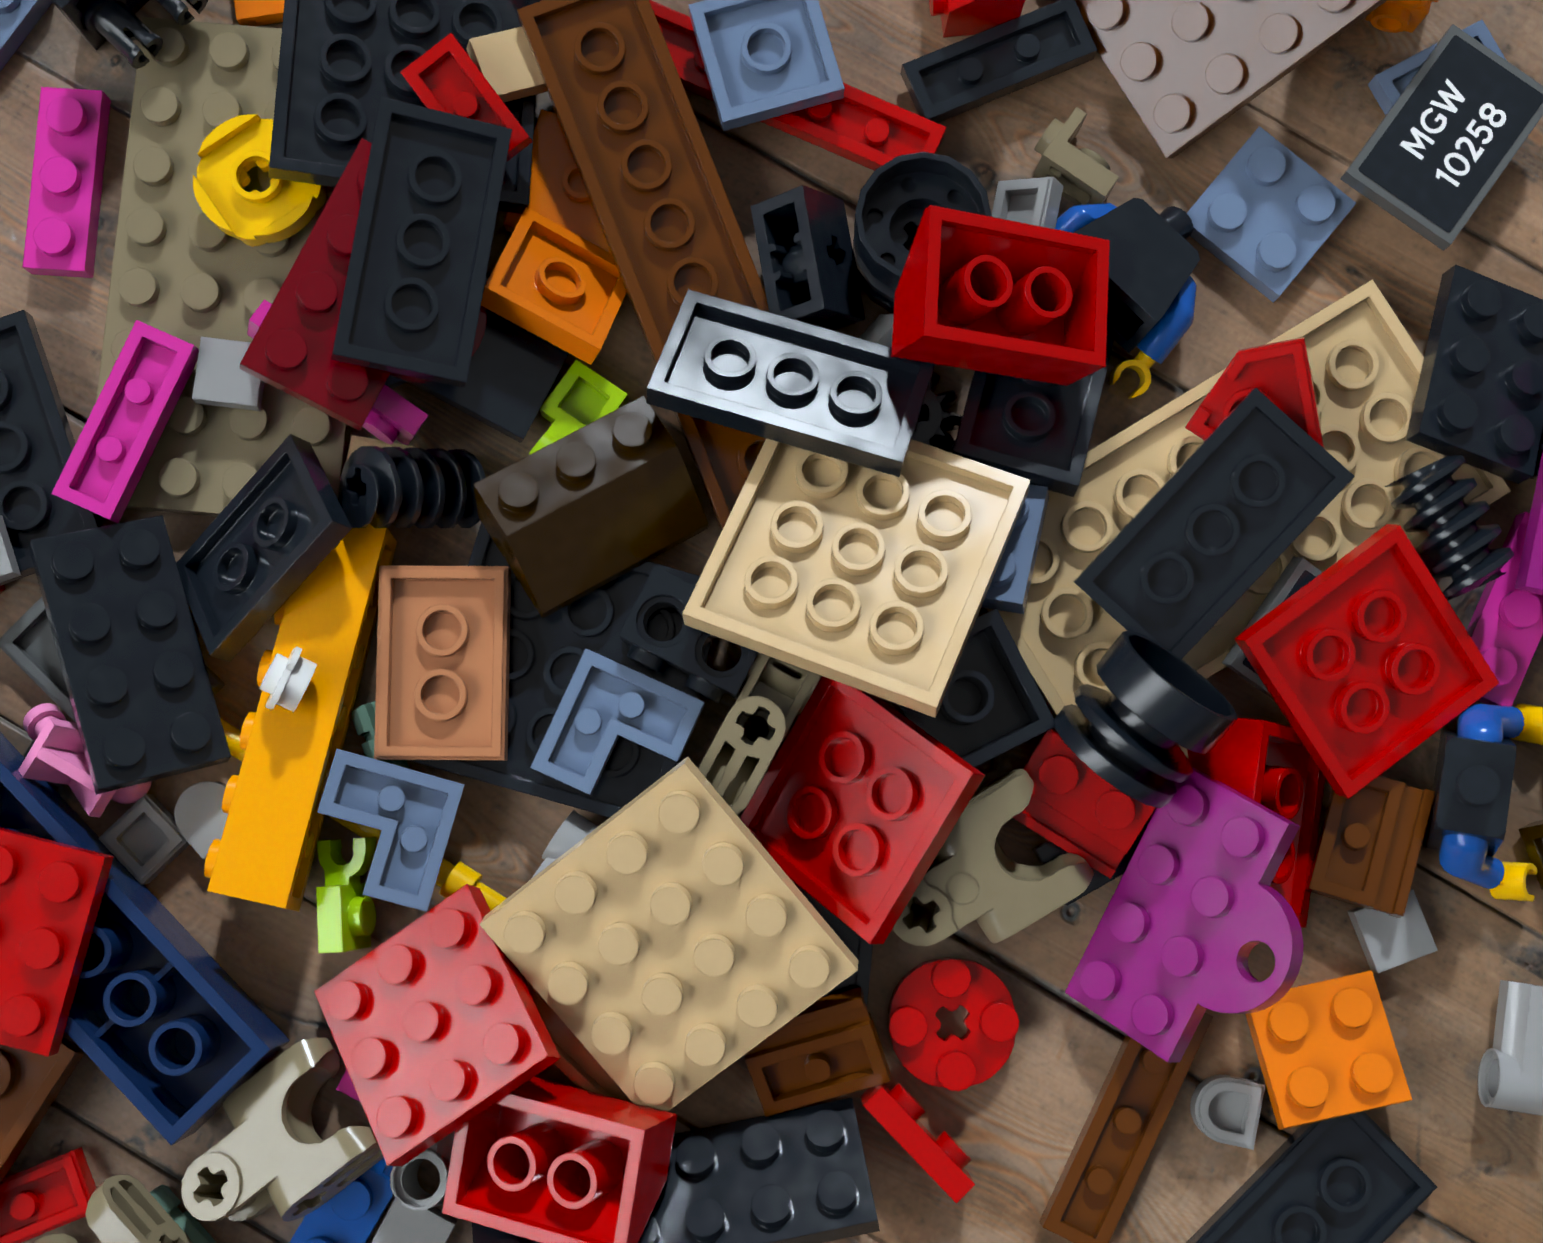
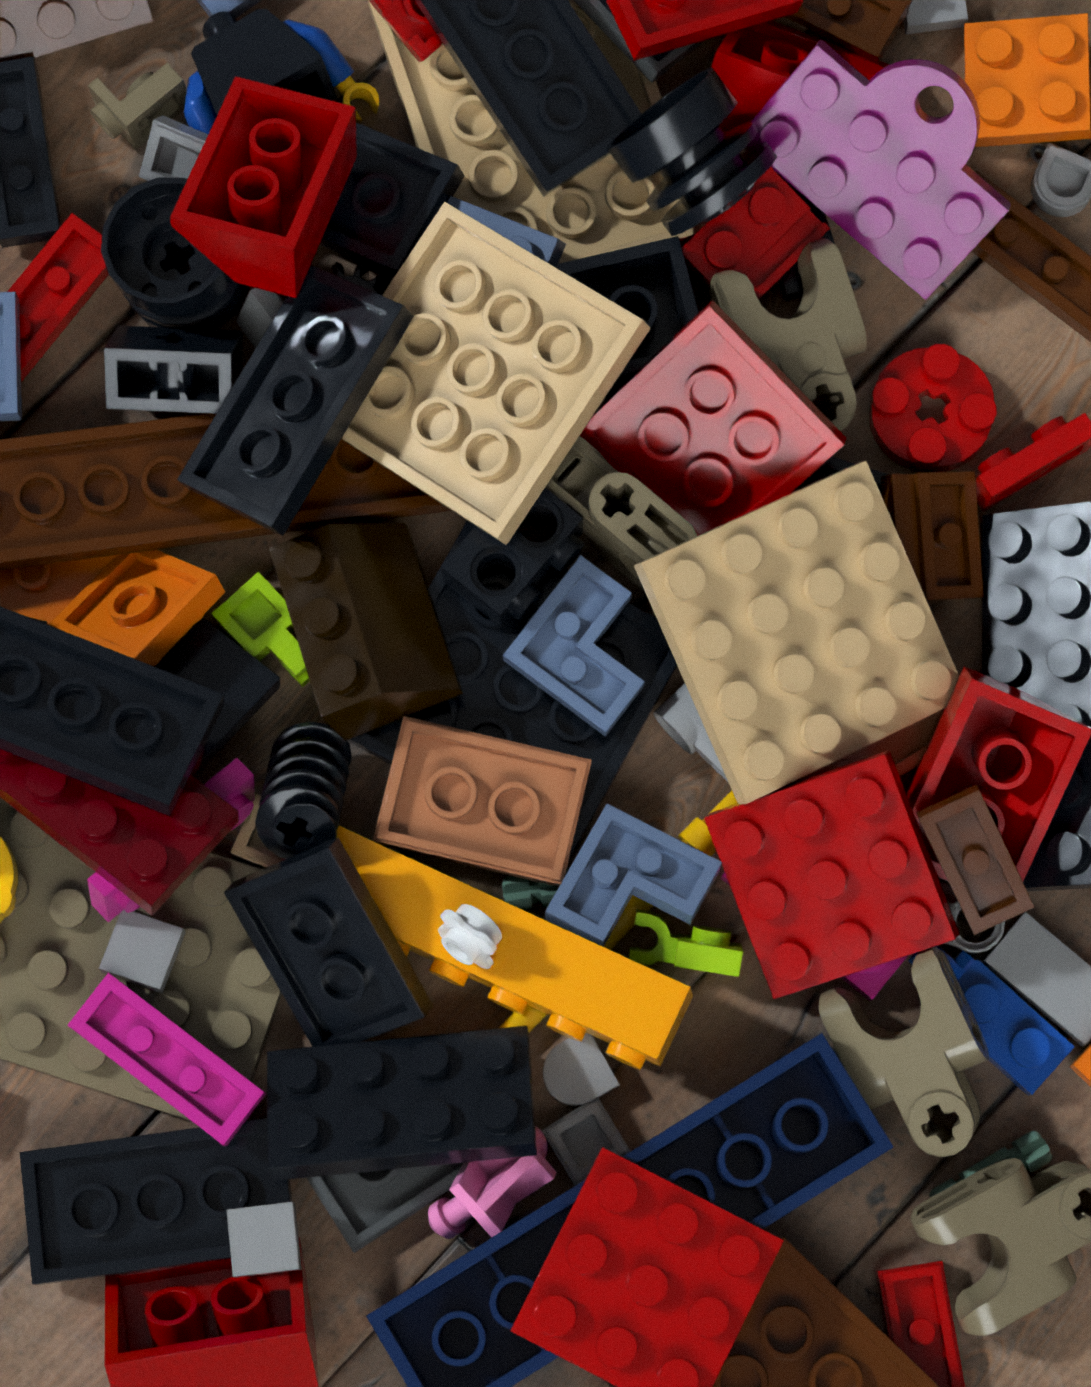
camera: 75 degrees left, 5 degrees down
(469, 1169) = (975, 859): none -> reddish brown plate

